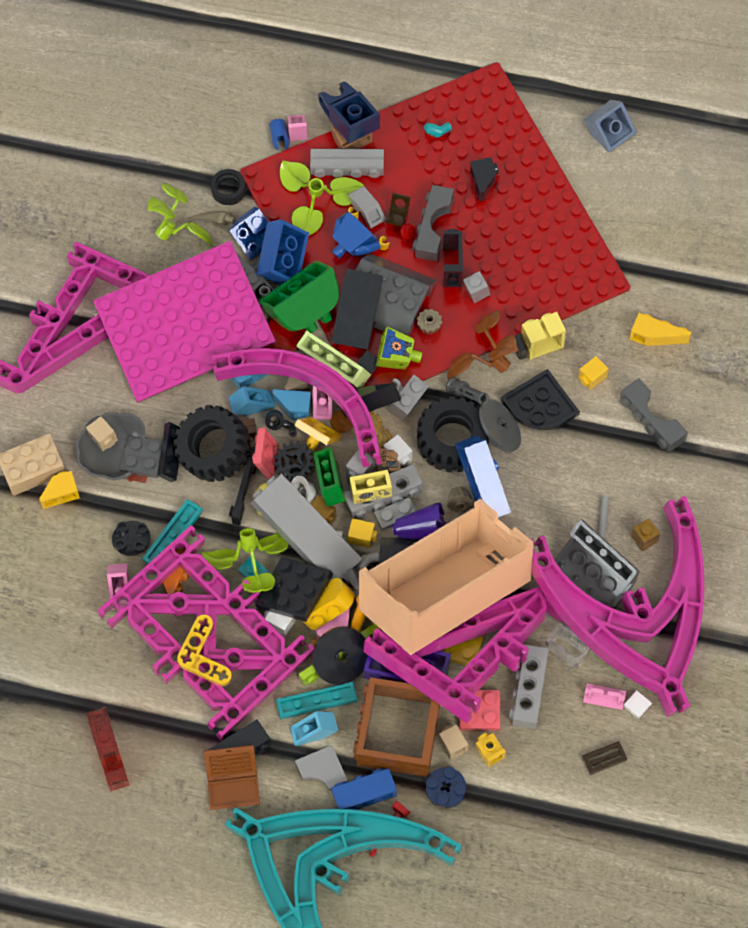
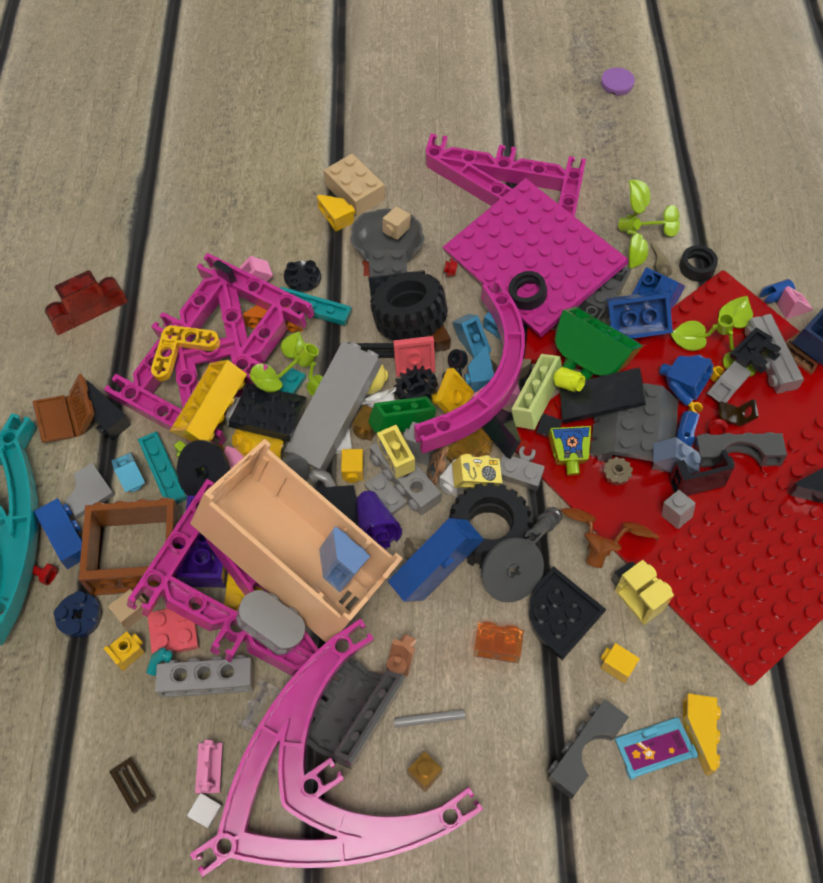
camera: 75 degrees right, 5 degrees down
(133, 593) = (224, 271): none -> tile
(166, 400) = (450, 268): none -> red plate
(229, 321) = (526, 278): none -> black tyre
(271, 637) = (209, 401): none -> yellow slope
(333, 330) = (569, 379): none -> neon yellow brick
(343, 176) = (752, 346): none -> black plate
(403, 255) = (687, 427): none -> blue piece
(405, 429) = (476, 470): none -> light yellow brick
(432, 271) = (672, 450): none -> sand blue brick
(464, 550) = (341, 559): none -> medium blue slope
(504, 720) = (156, 658): none -> teal arm
(507, 613) = (270, 622): none -> light grey brick
(552, 528) = (401, 655): none -> nougat hips
(555, 456) = (498, 642): none -> clear orange brick
(662, 364) = (656, 751): none -> door

